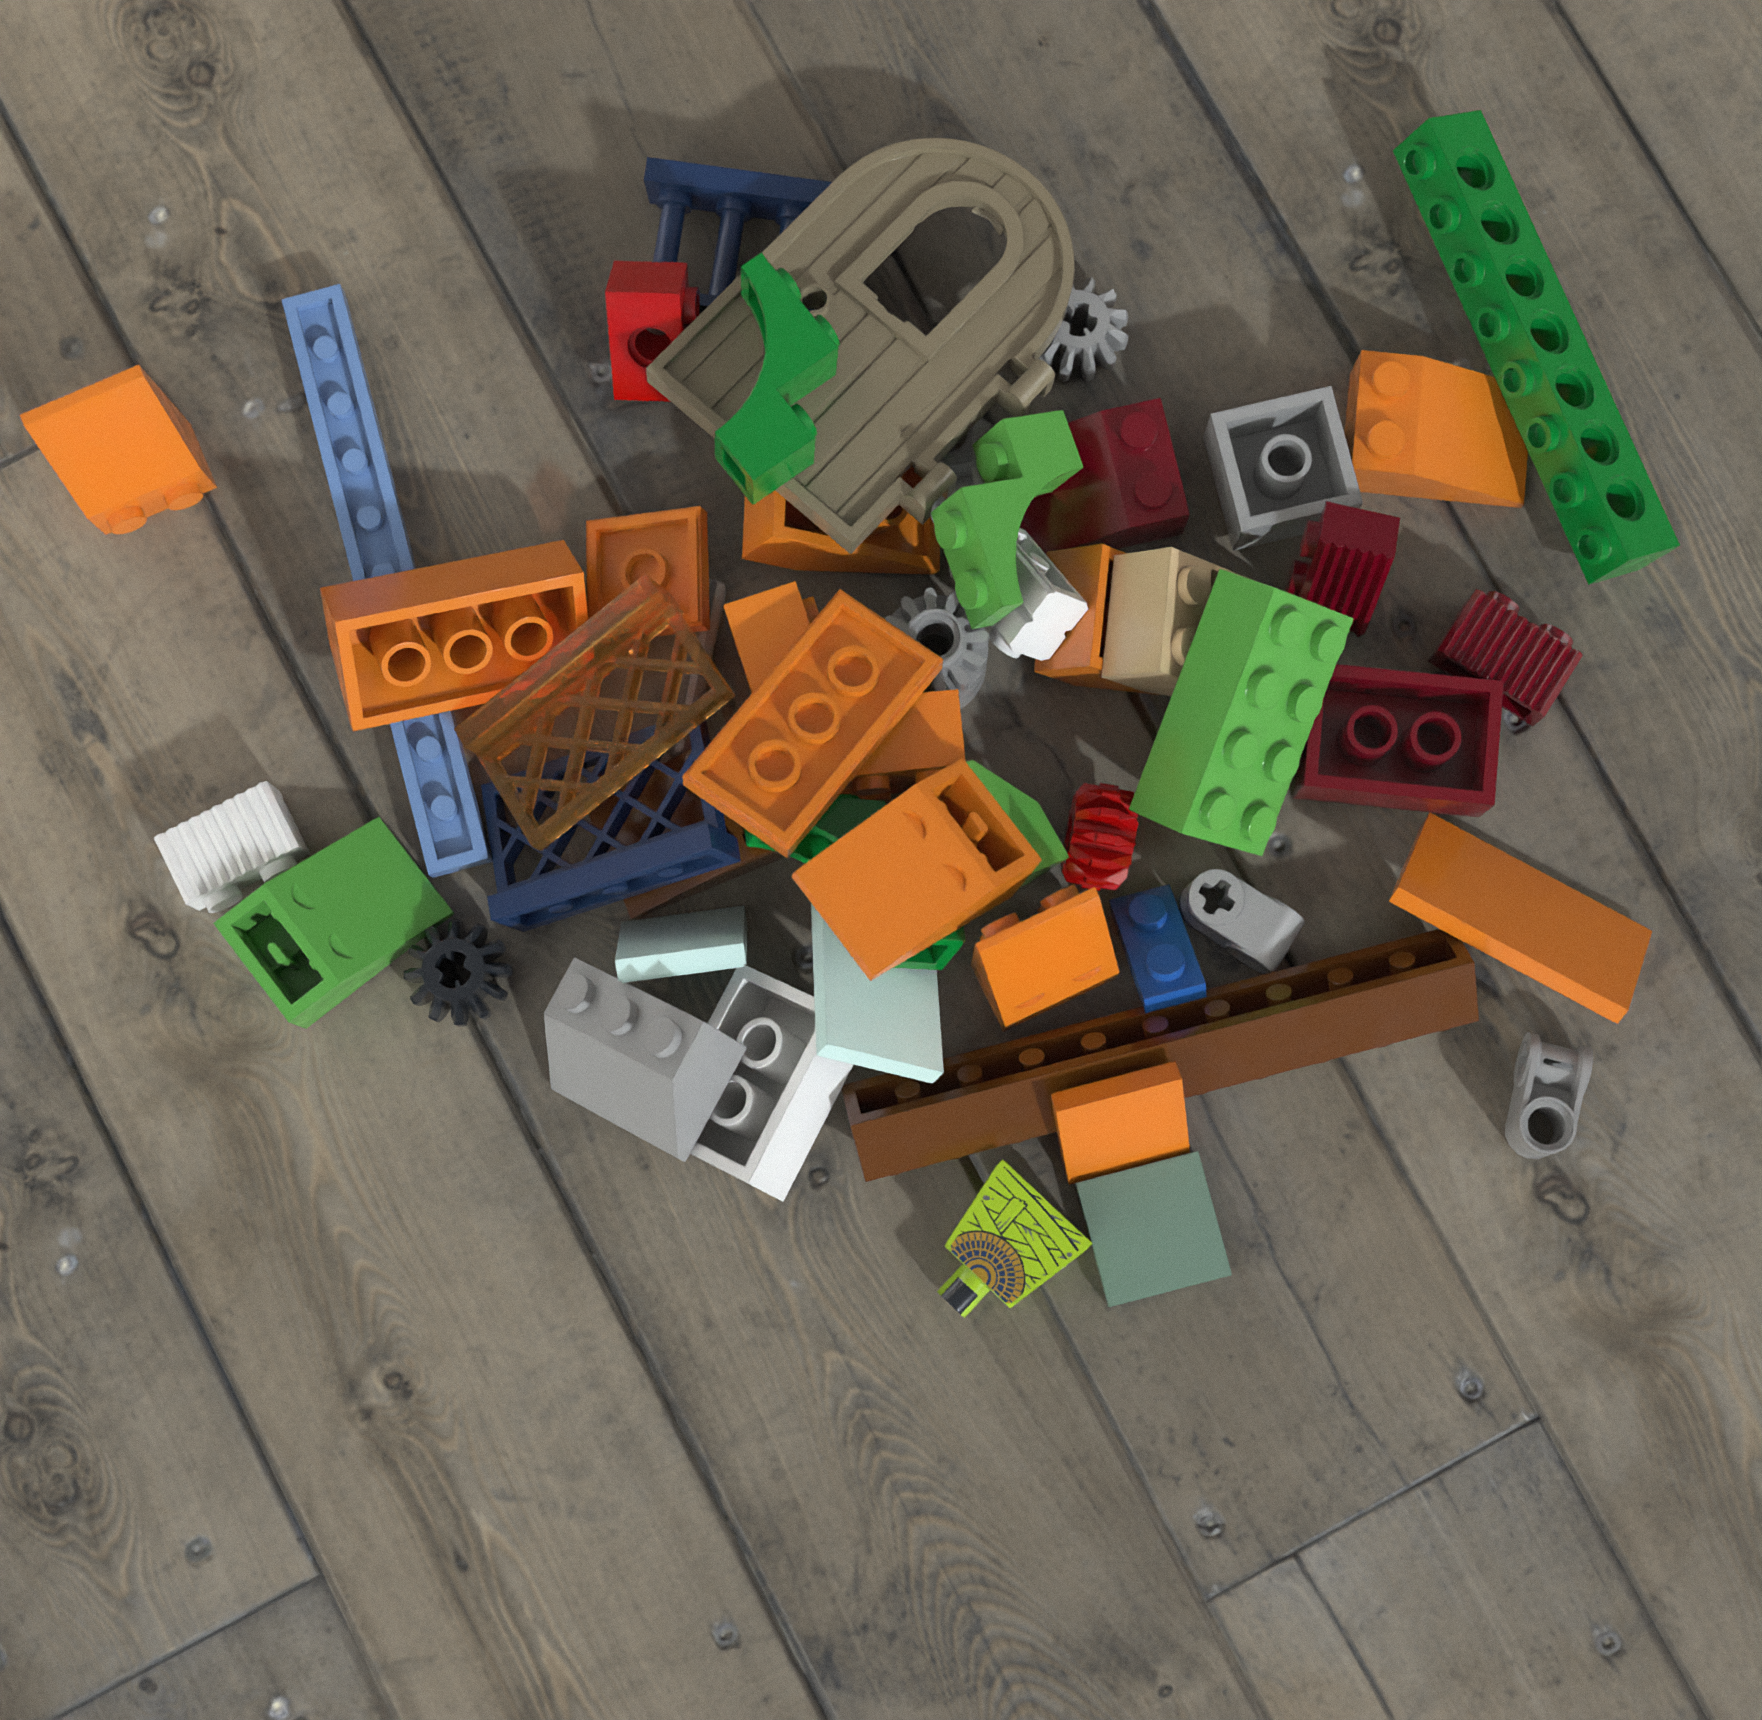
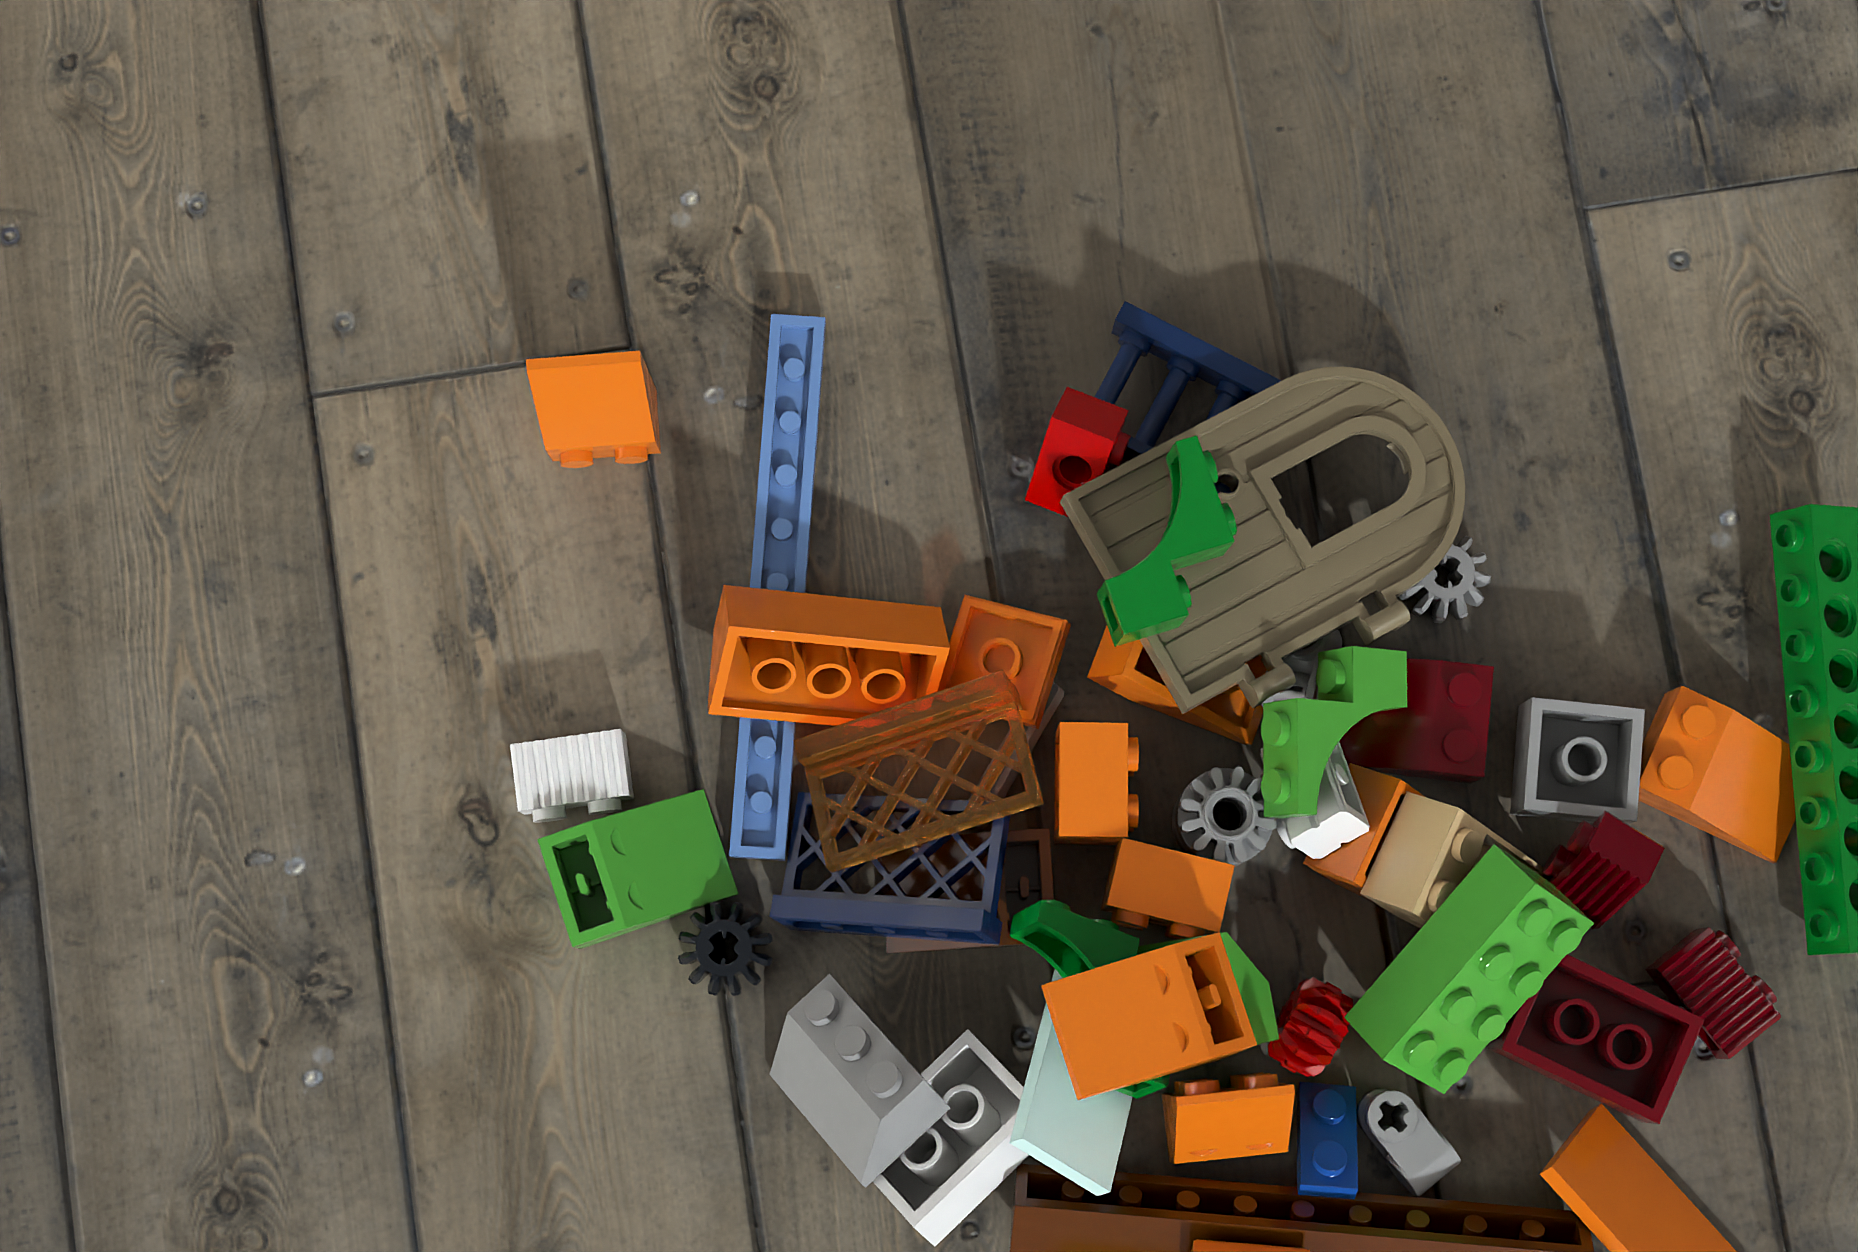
camera: 15 degrees right, 0 degrees up
(682, 944) = (924, 995): light aqua tile -> none
(812, 723) = (1102, 855): orange tile -> none

